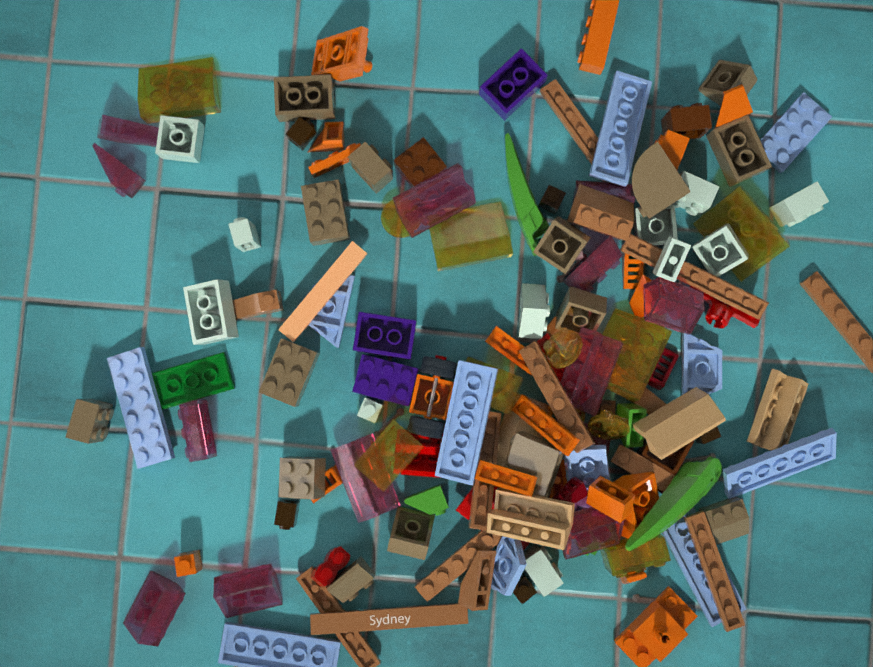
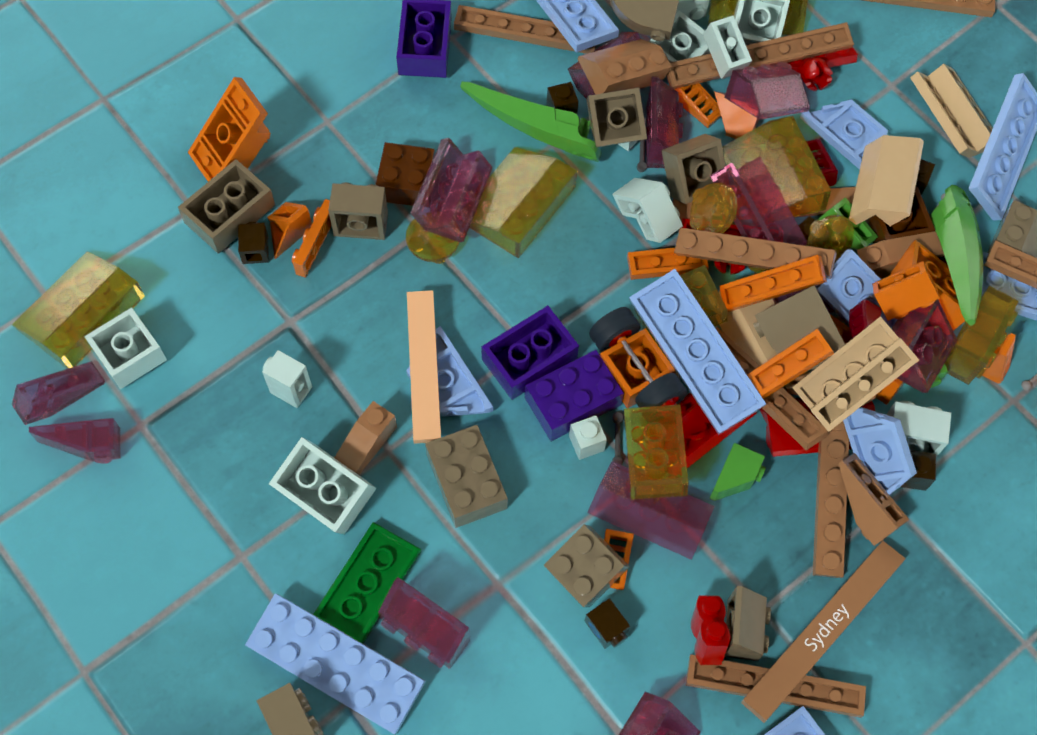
camera: 45 degrees left, 20 degrees down
(325, 212) = (351, 292): dark tan brick -> none
(411, 533) = (755, 522): dark tan slope -> none

